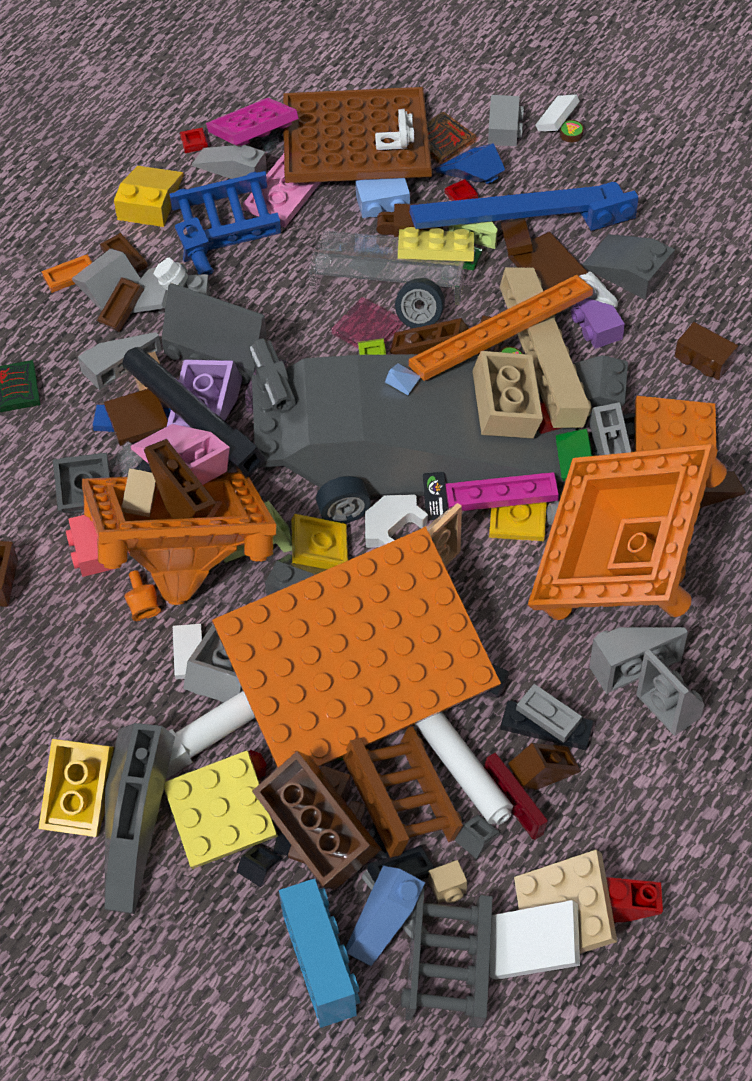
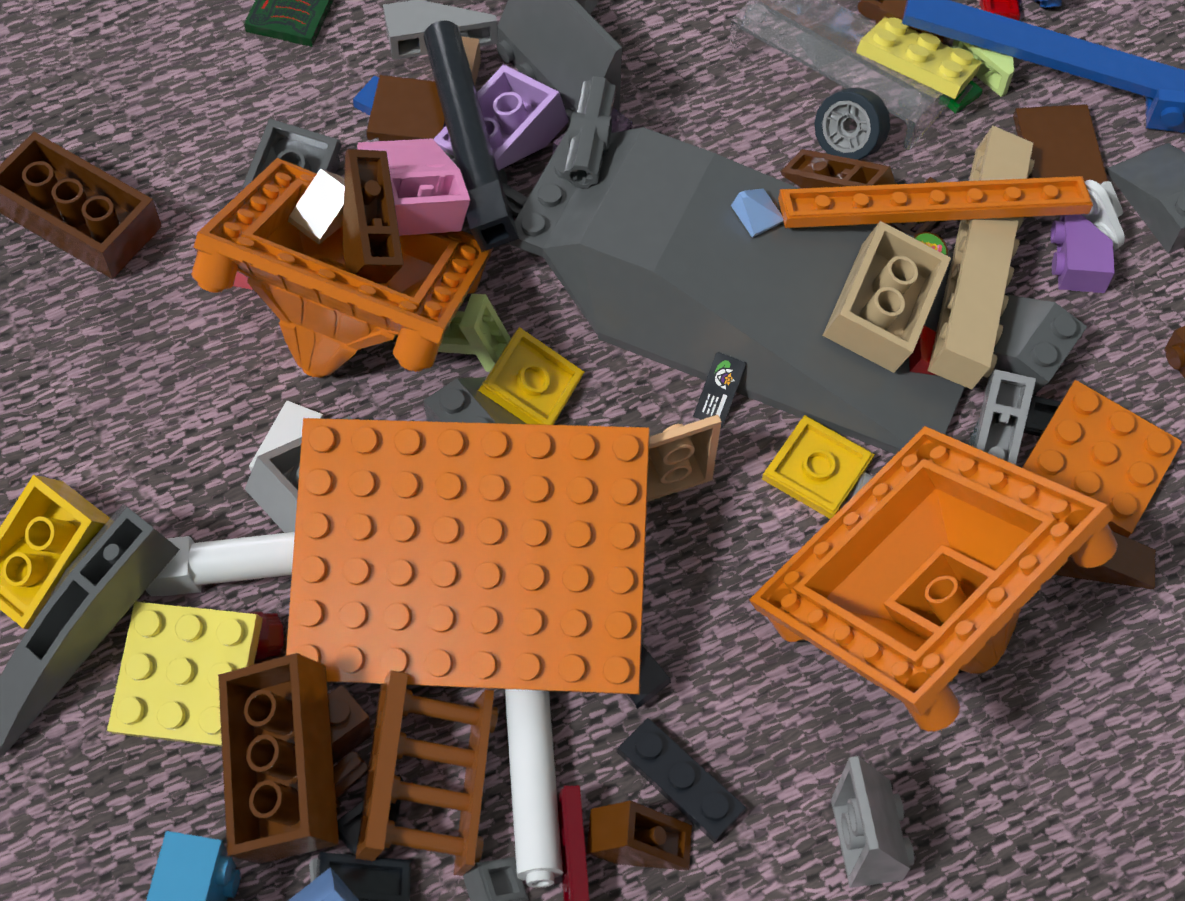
camera: 25 degrees right, 5 degrees up
(142, 598) = (268, 351): orange piece -> none
(258, 864) = (194, 772): black slope -> none
(343, 499) = (593, 338): black wheel -> none
(366, 322) = (770, 126): clear pink tile -> none
(372, 347) = (756, 156): lime tile -> none
(389, 516) = (643, 389): white piece -> none
(503, 491) = (809, 426): dark pink plate -> none
(516, 236) = (1037, 92): reddish brown tile -> none
(549, 713) = (687, 767): light grey plate -> none
(571, 446) = (945, 411): green panel -> none
(620, 652) = (833, 729): light grey slope -> none

